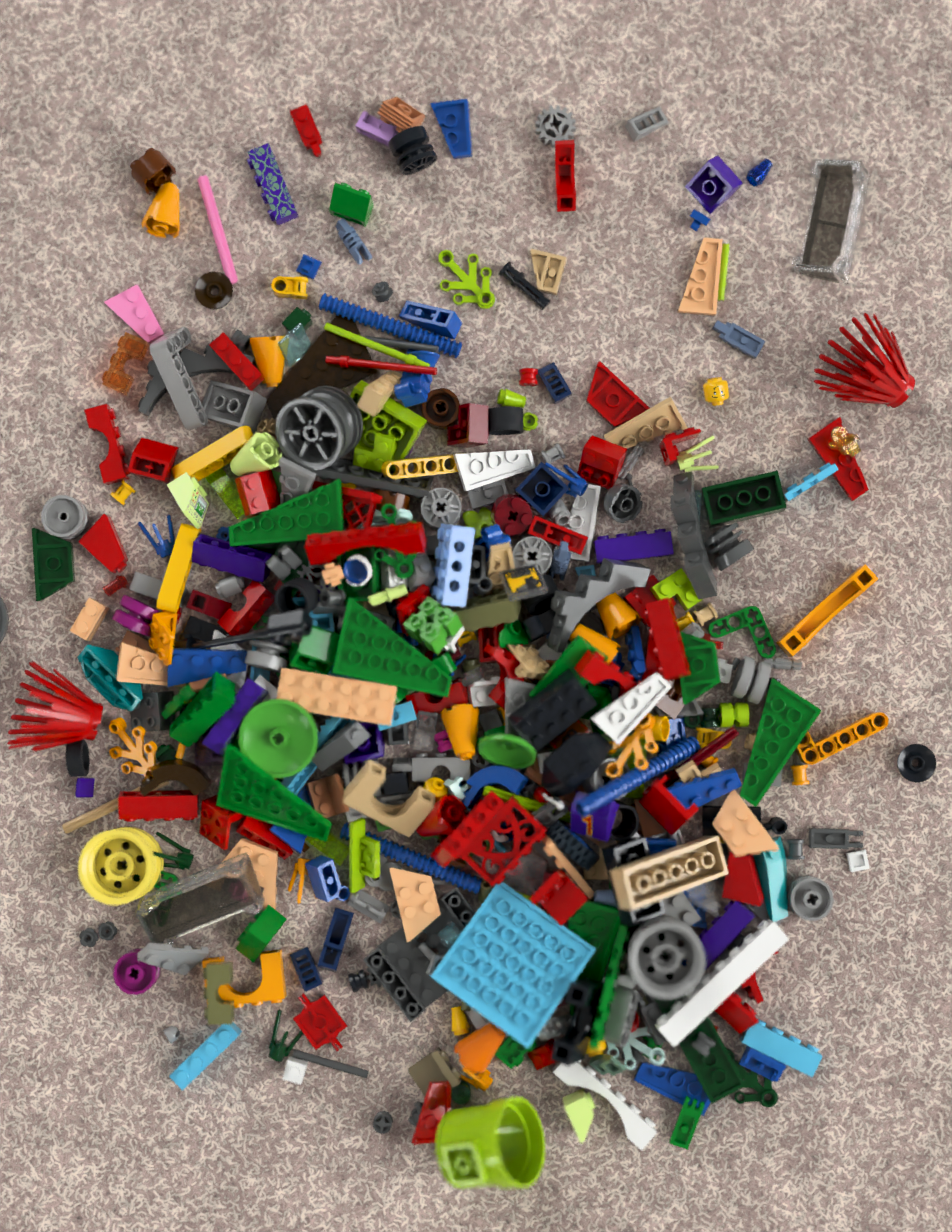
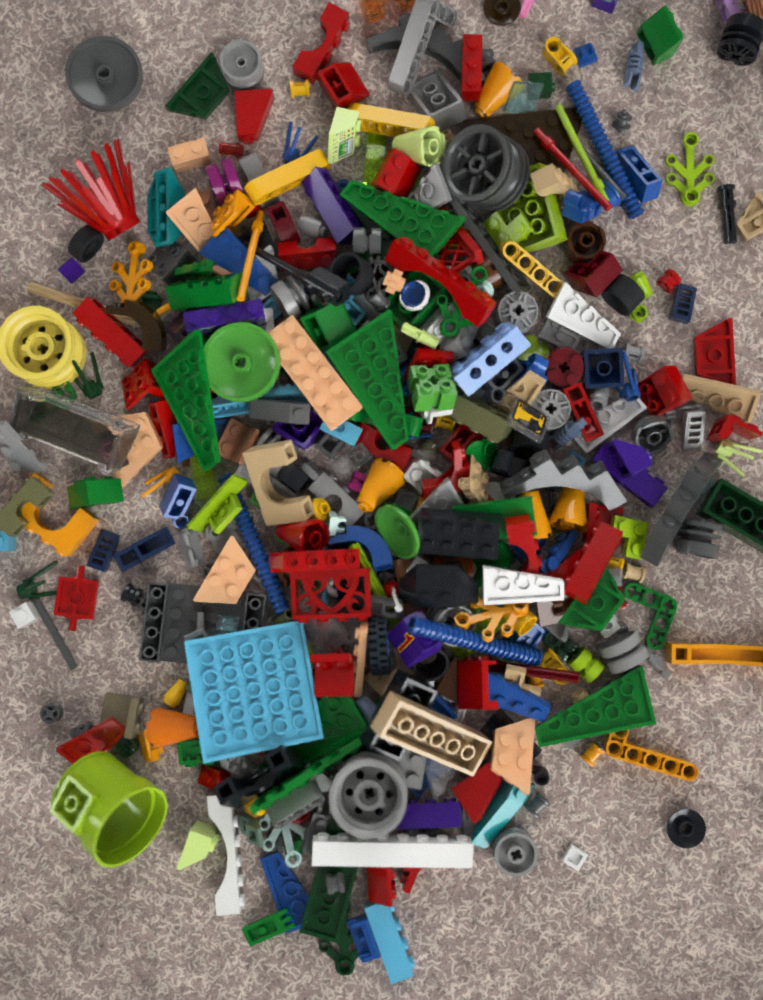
camera: 35 degrees right, 0 degrees up
(192, 627) = (257, 228): none -> light orange bar
(621, 539) = (628, 457): none -> dark purple slope
(640, 470) = (686, 422): none -> light grey slope
(833, 838) = (572, 823): dark grey hinge -> none

